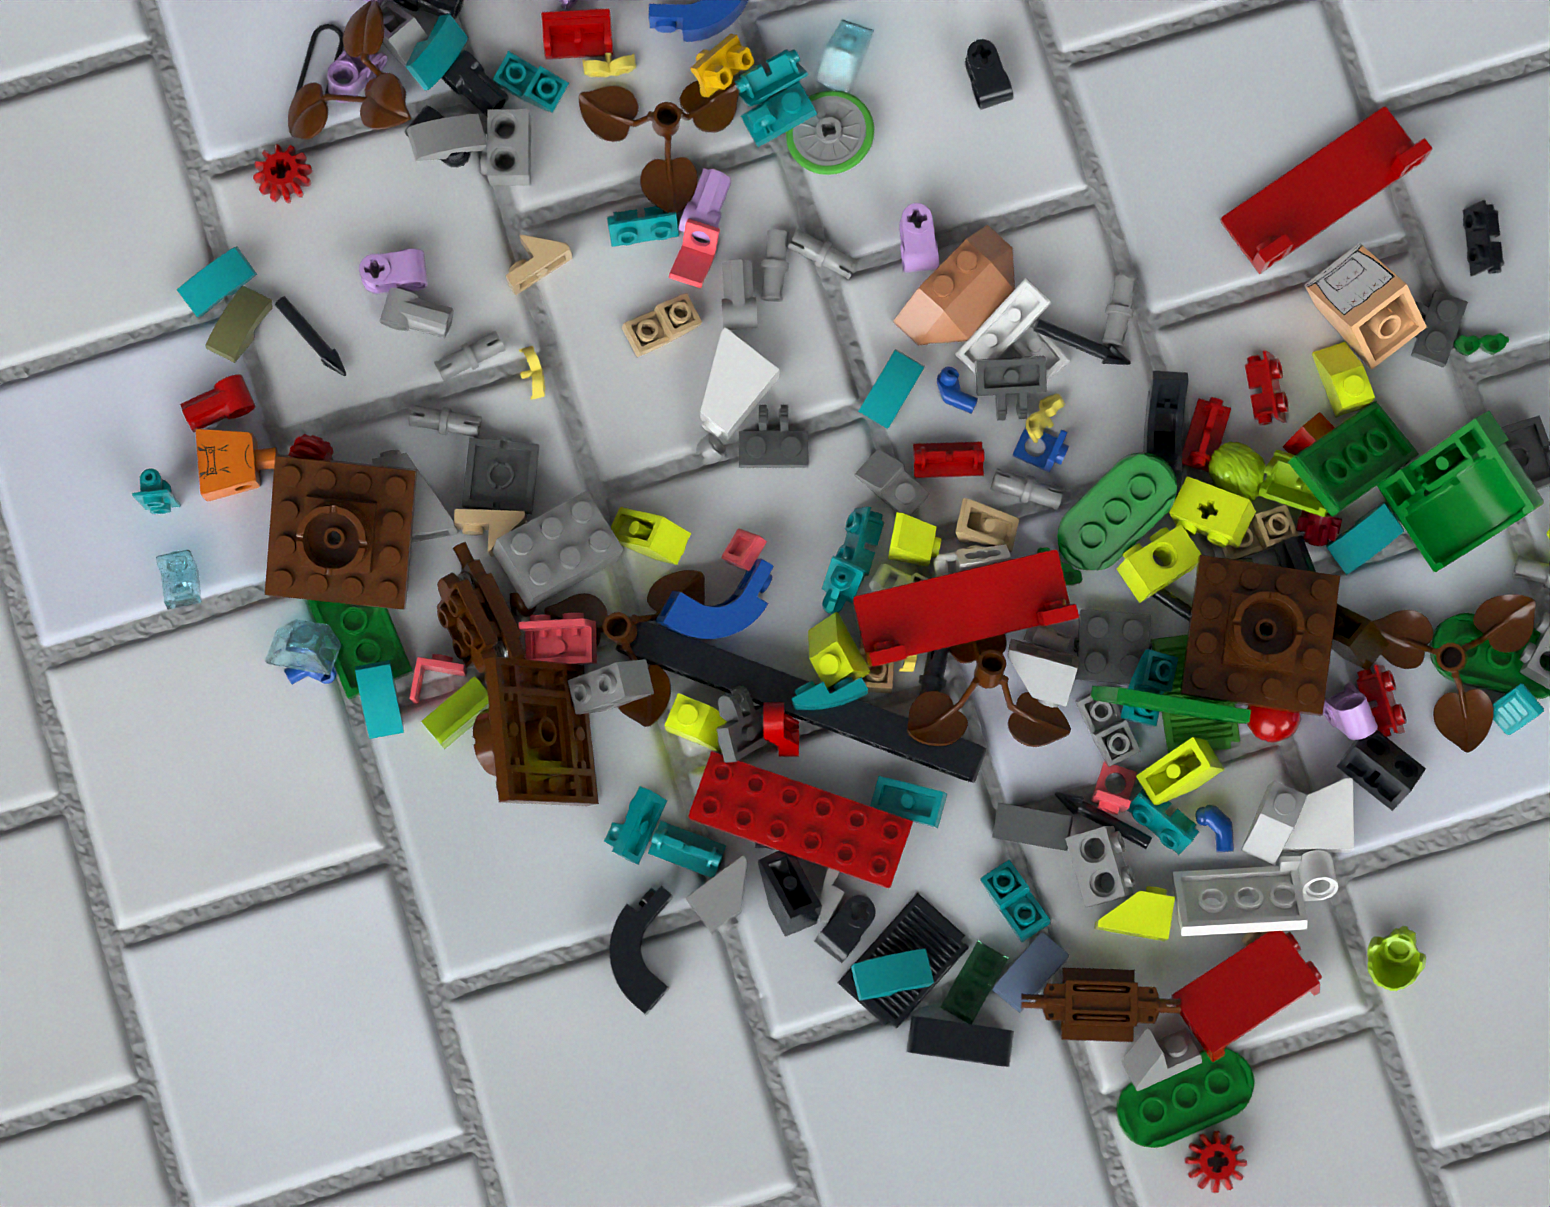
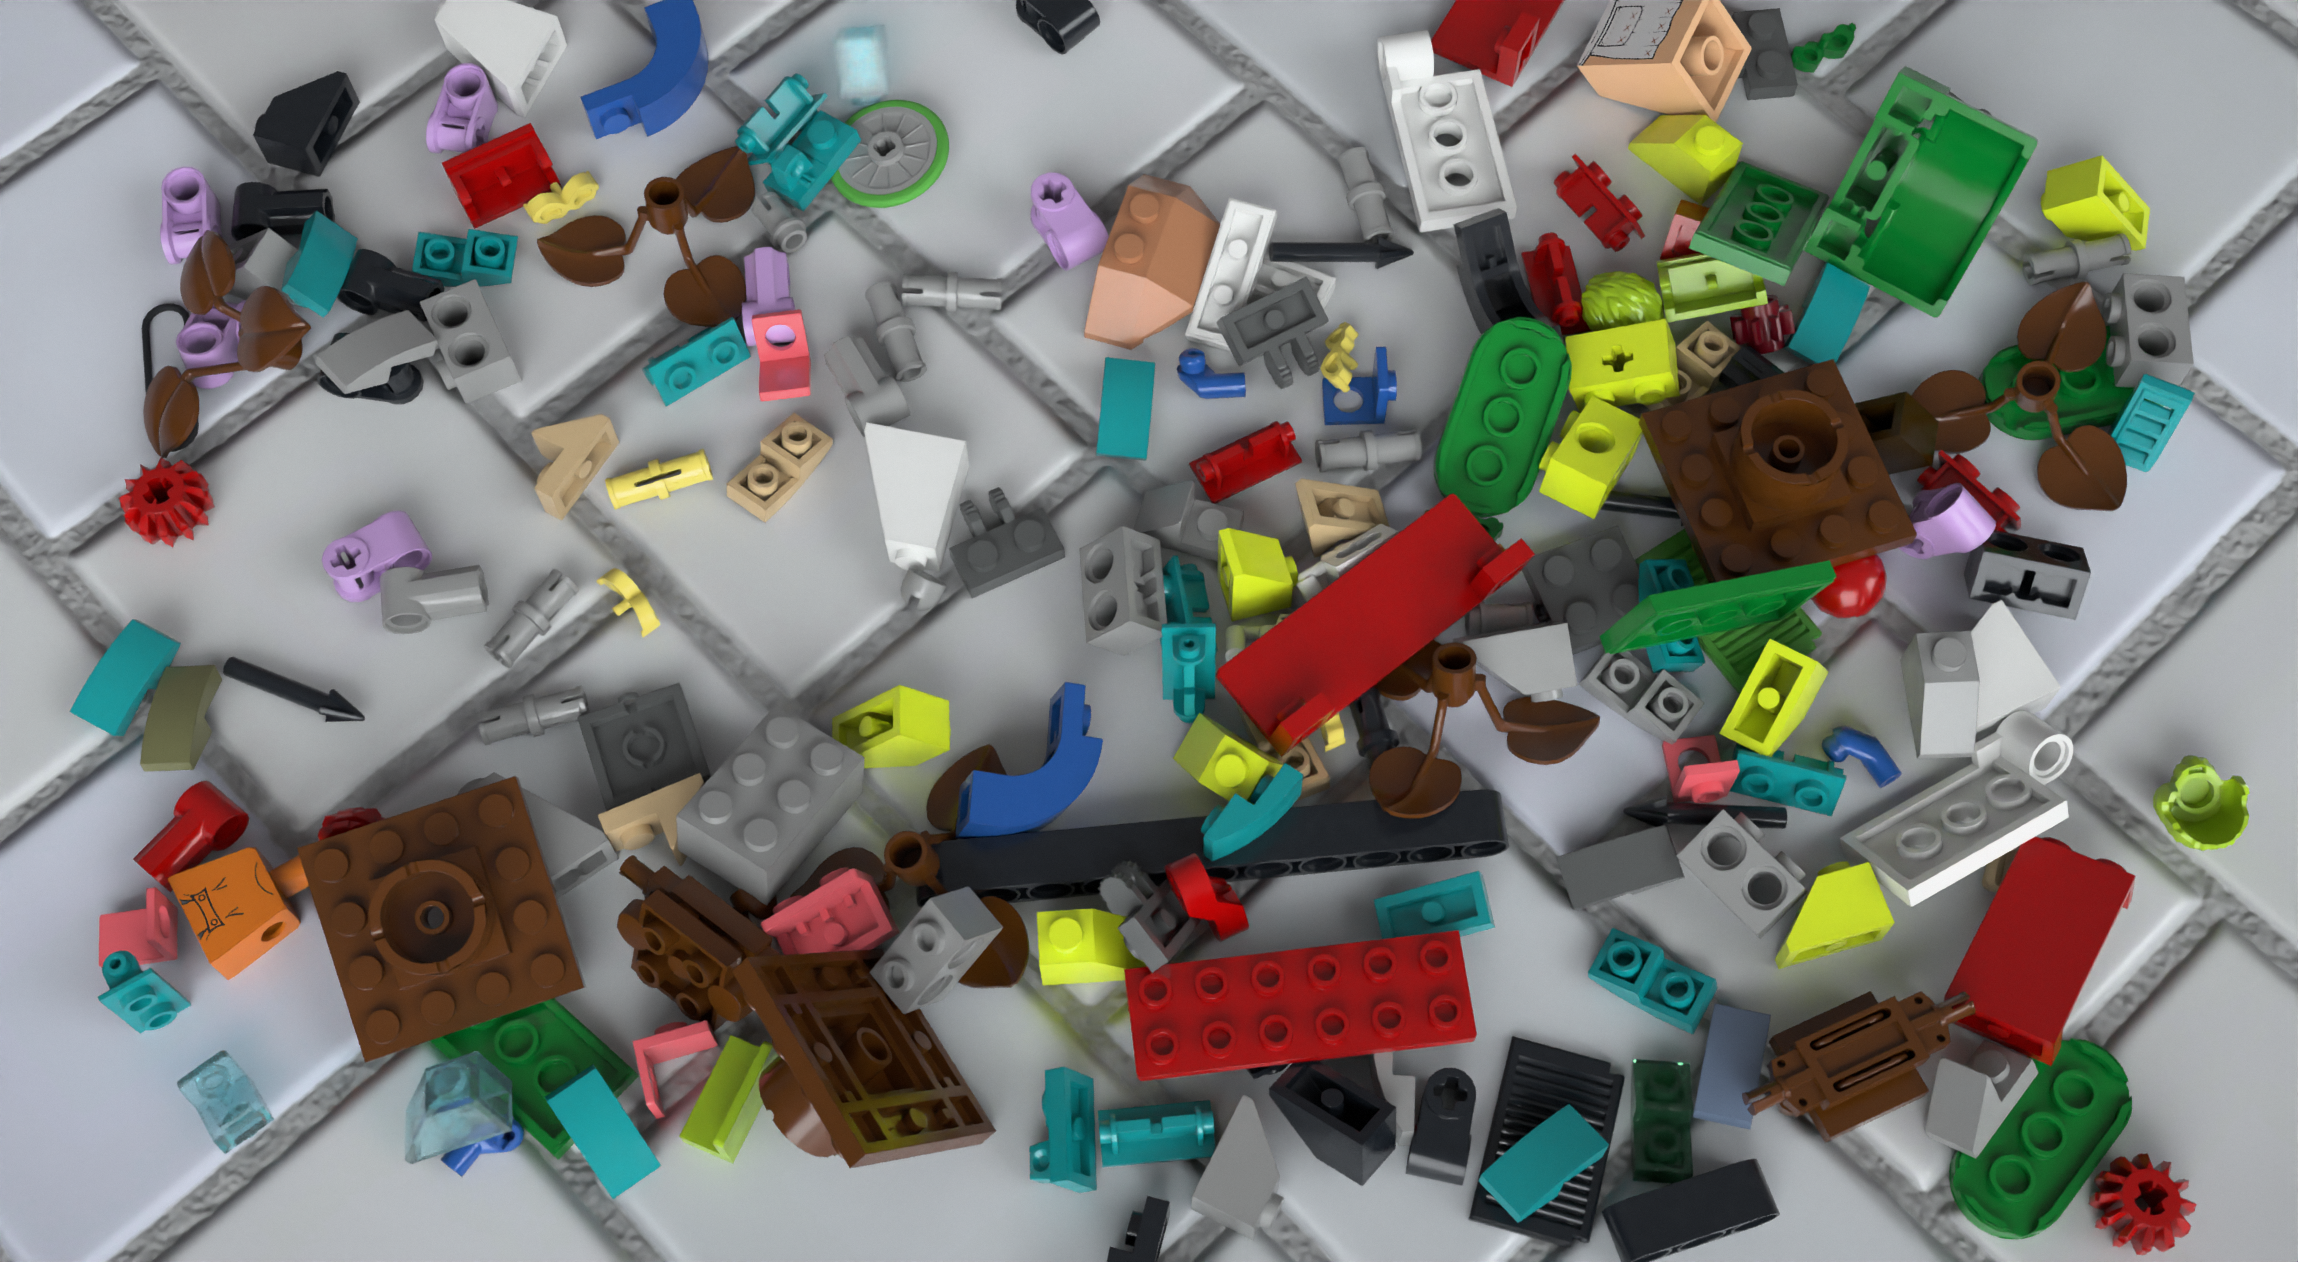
camera: 25 degrees left, 15 degrees down
(166, 451) = (145, 932): none -> coral bracket
(584, 299) = (625, 490): none -> light yellow pin
(718, 66) = (709, 128): yellow hips -> none
(739, 158) = (786, 231): none -> light grey pin
(743, 549) = (1031, 691): coral tile -> none
(828, 513) = (1123, 590): none -> light grey brick
(1199, 266) = (1437, 105): none -> white hinge

